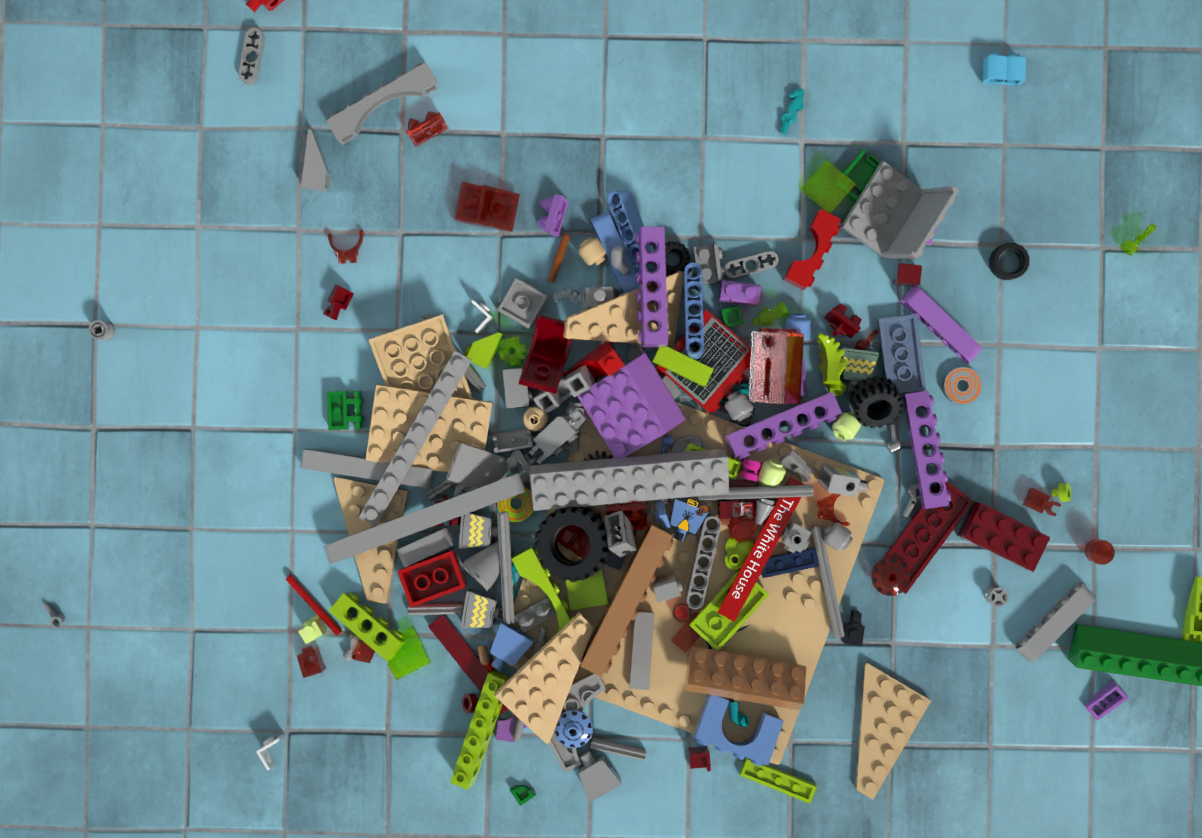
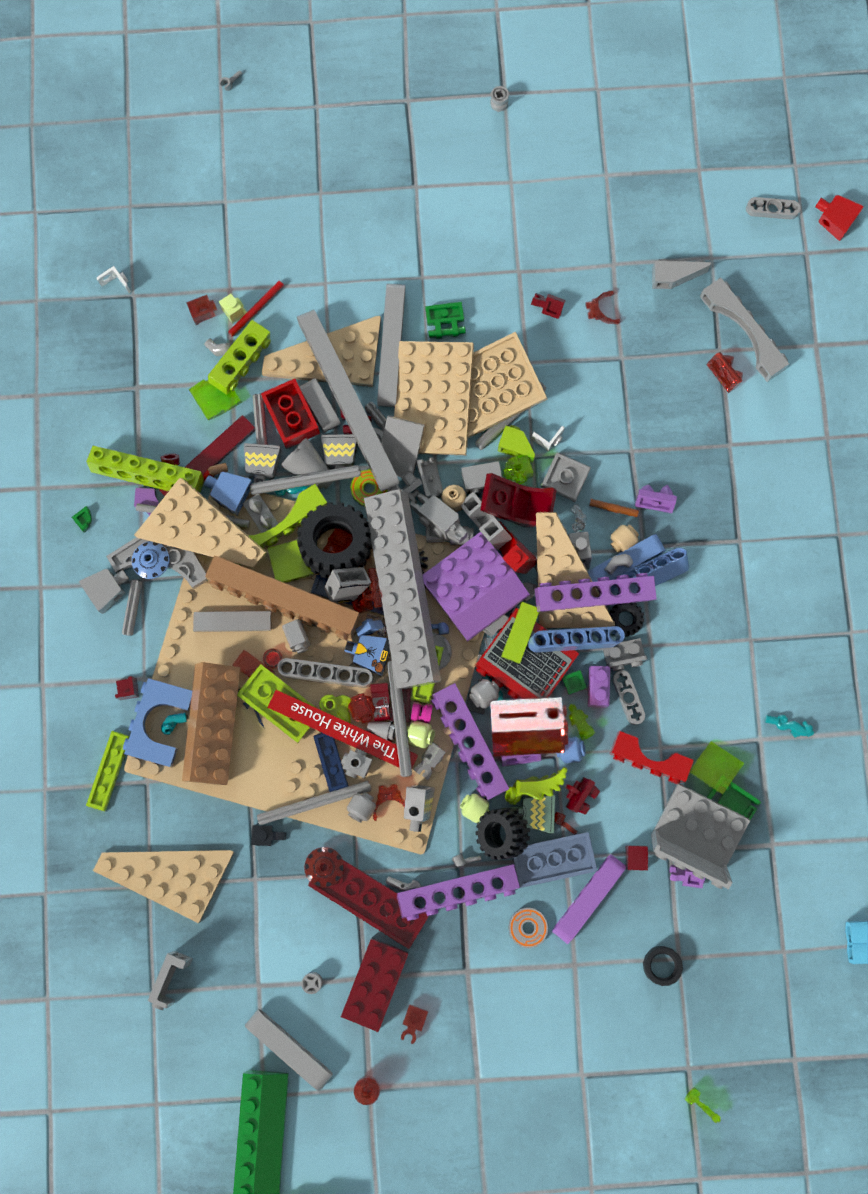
camera: 85 degrees right, 10 degrees down
(363, 652) = (213, 355): clear red tile -> none
(415, 438) = (425, 384): light grey plate -> none
(486, 207) = (656, 434): clear red slope -> none
(968, 724) = (172, 960): none -> light grey panel
(1063, 492) = (426, 1046): lime tile -> none
(1107, 690) = (220, 1114): medium lavender slope -> none

